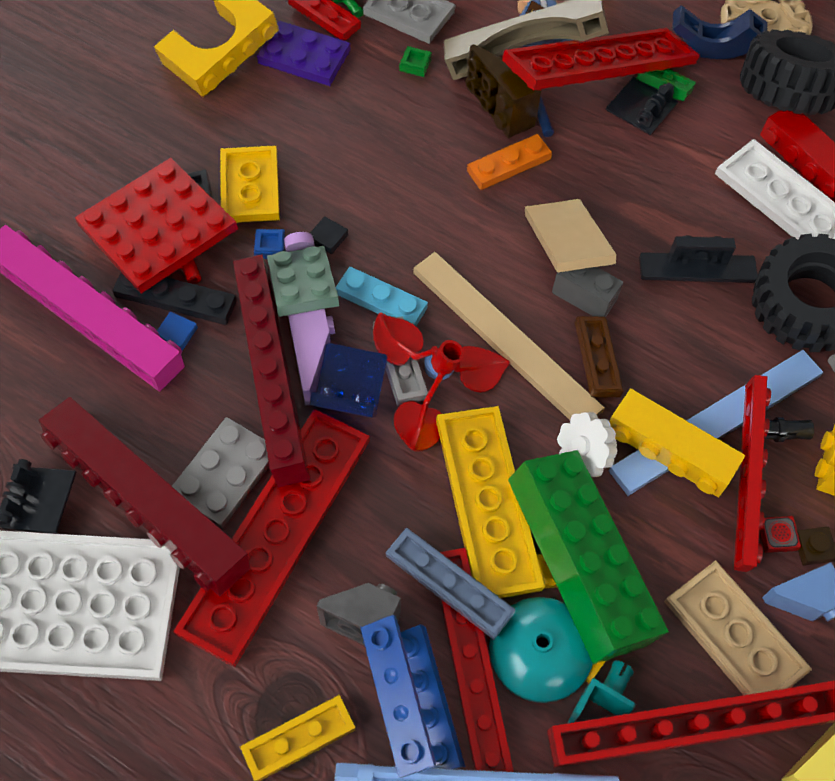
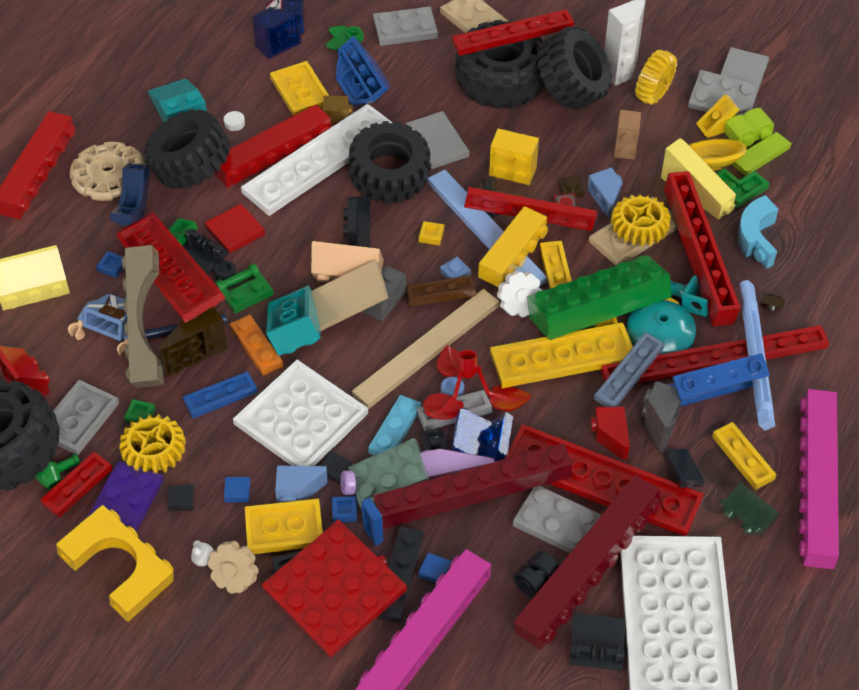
camera: 90 degrees left, 10 degrees down
(139, 432) = (535, 573): none -> black wheel
(197, 726) = (749, 509): none -> clear green bracket
(199, 136) = (233, 567): none -> tan plant
(226, 113) = (201, 553): none -> white piece
(227, 250) = (372, 521): none -> blue tile
(280, 641) = (683, 468): none -> black tile
(301, 97) = (181, 498): none -> black tile
(302, 193) = (299, 482): none -> medium blue slope
(306, 145) = (237, 489): none -> blue tile
(353, 335) = (433, 440): none -> black tile
(353, 551) = (611, 430): none -> red slope
(367, 68) = (150, 436): none -> yellow gear
(399, 201) = (300, 416): none -> white plate
(438, 130) = (220, 394): none -> blue tile
(535, 187) = (293, 321): none -> teal slope
(588, 154) = (247, 293): none -> green plate
(621, 131) = (224, 270): none -> black tile
(624, 25) = (110, 264): none -> blue tile
(630, 237) = (336, 260): none -> light nougat slope
(638, 376) = (454, 269): none -> medium blue plate
(651, 505) = (554, 263): none -> yellow plate
(689, 140) = (235, 228): none -> red tile
(704, 353) = (431, 233): none -> yellow tile
(773, 647) = (640, 220): none -> yellow gear

